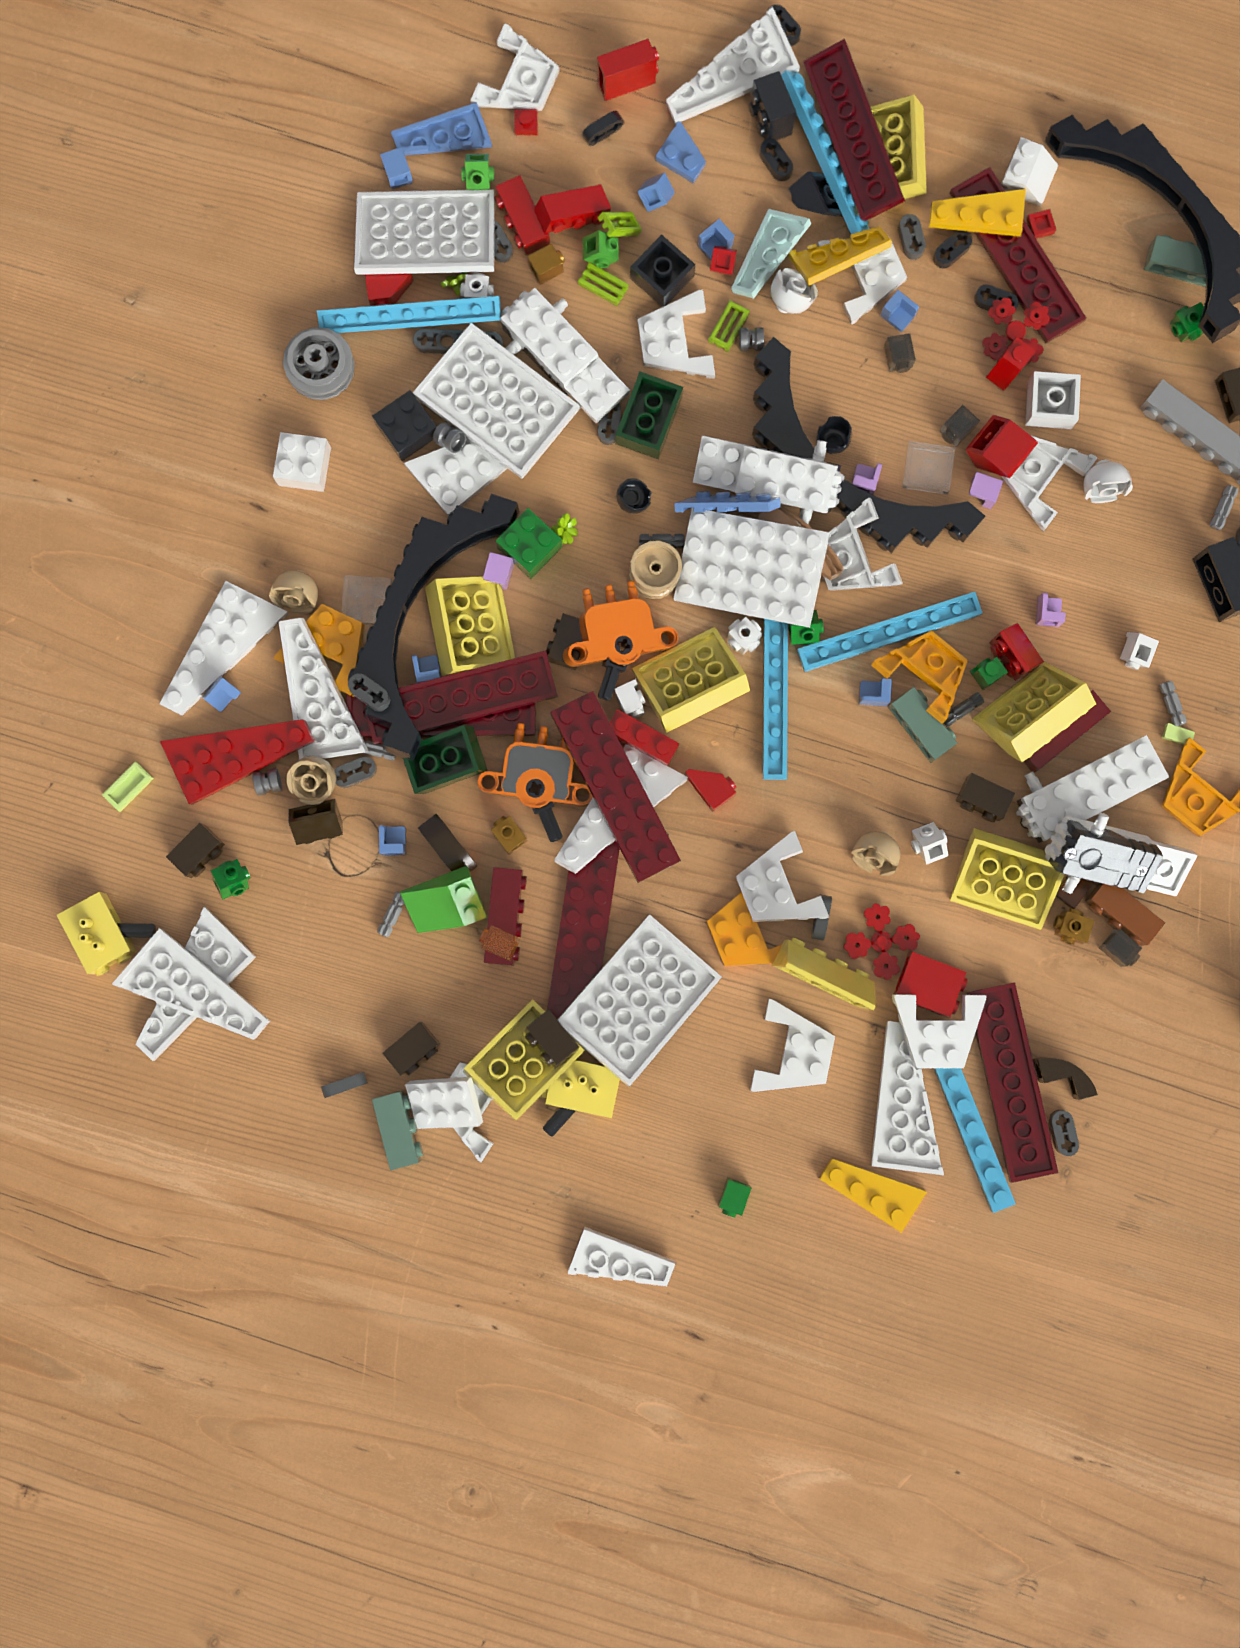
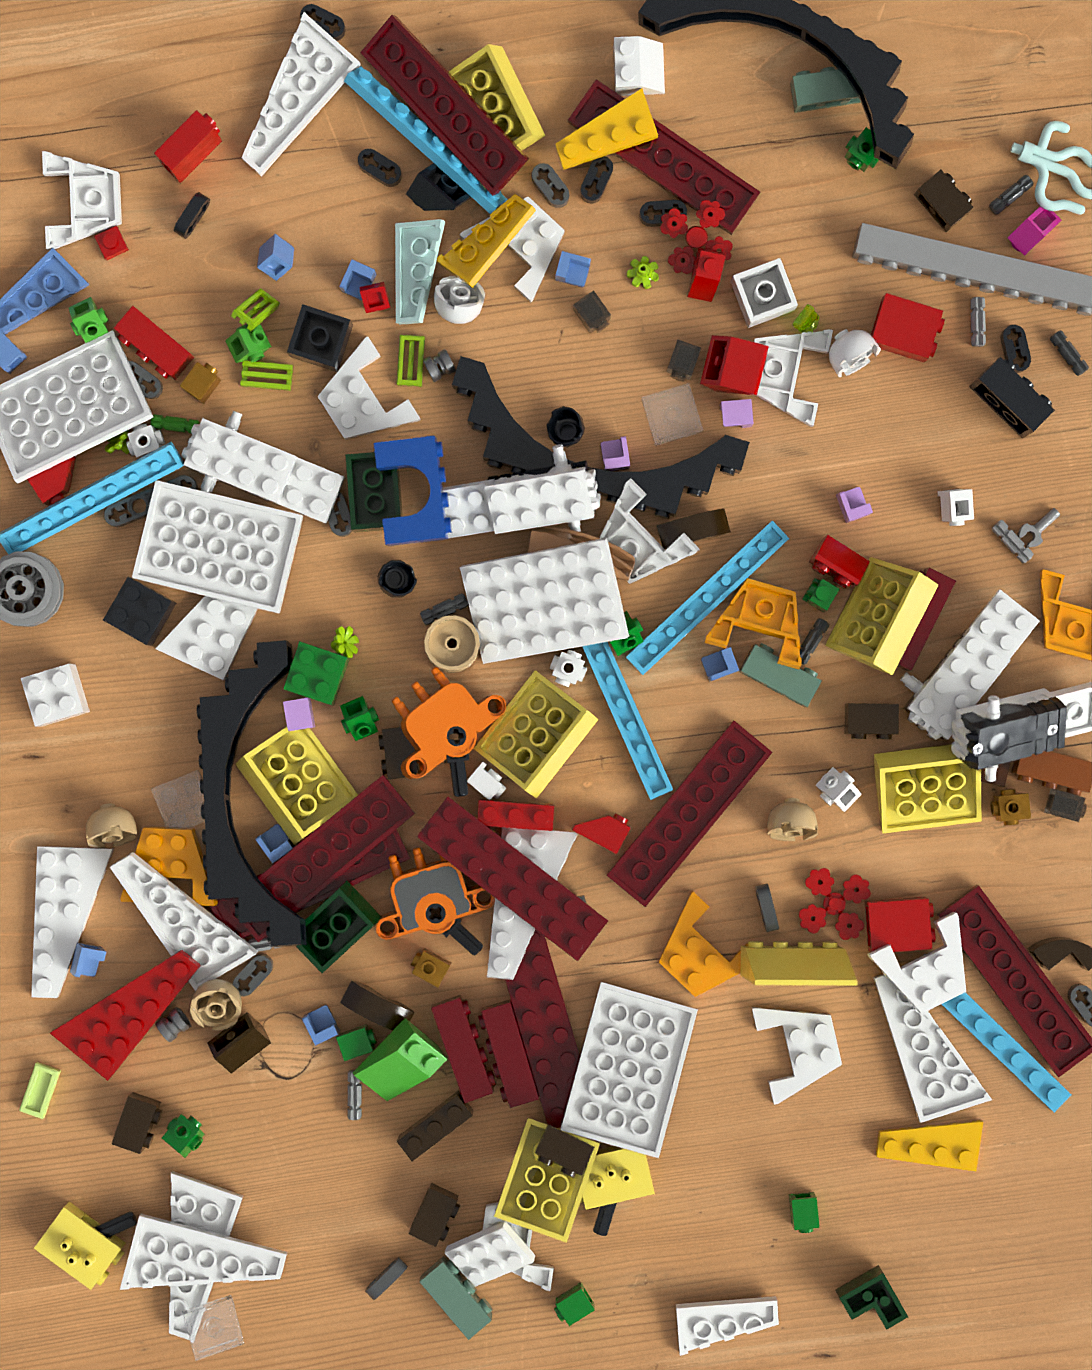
camera: 25 degrees left, 5 degrees up
(175, 1057) = (213, 1327): none -> clear plate
(371, 687) = (231, 907): dark grey beam -> none
(415, 868) = (356, 1042): none -> green brick
(448, 971) = (435, 1126): none -> dark brown brick
(449, 437) = (191, 605): flat silver wheel -> none
(495, 1184) = (574, 1304): none -> green brick
(499, 942) = (472, 1082): clear orange piece -> none
(505, 287) = (173, 423): none -> bright green axle
(542, 939) = (509, 1053): none -> dark red brick
(547, 596) = (360, 723): none -> green brick
(571, 208) = (201, 316): red brick -> none
(681, 154) = (282, 205): medium blue wing -> none
(685, 455) = (431, 521): none -> blue arch
(724, 502) = (492, 548): medium blue wing -> none
(765, 1296) = (870, 1292): none -> dark green brick
(768, 889) = (704, 906): white wing -> none
(772, 107) = (352, 119): black brick -> none
(791, 806) = (689, 813): none -> dark red plate
(910, 566) = (696, 527): none -> dark brown brick
(957, 341) = (643, 276): none -> lime plant
(1041, 223) = (673, 113): red plate -> none
(1078, 439) = (807, 320): none -> clear neon green plate
(1162, 484) = (907, 327): none -> red brick
(1176, 734) = (1029, 569): yellowish green piece -> none
(1198, 703) = (1037, 529): none -> light grey bar

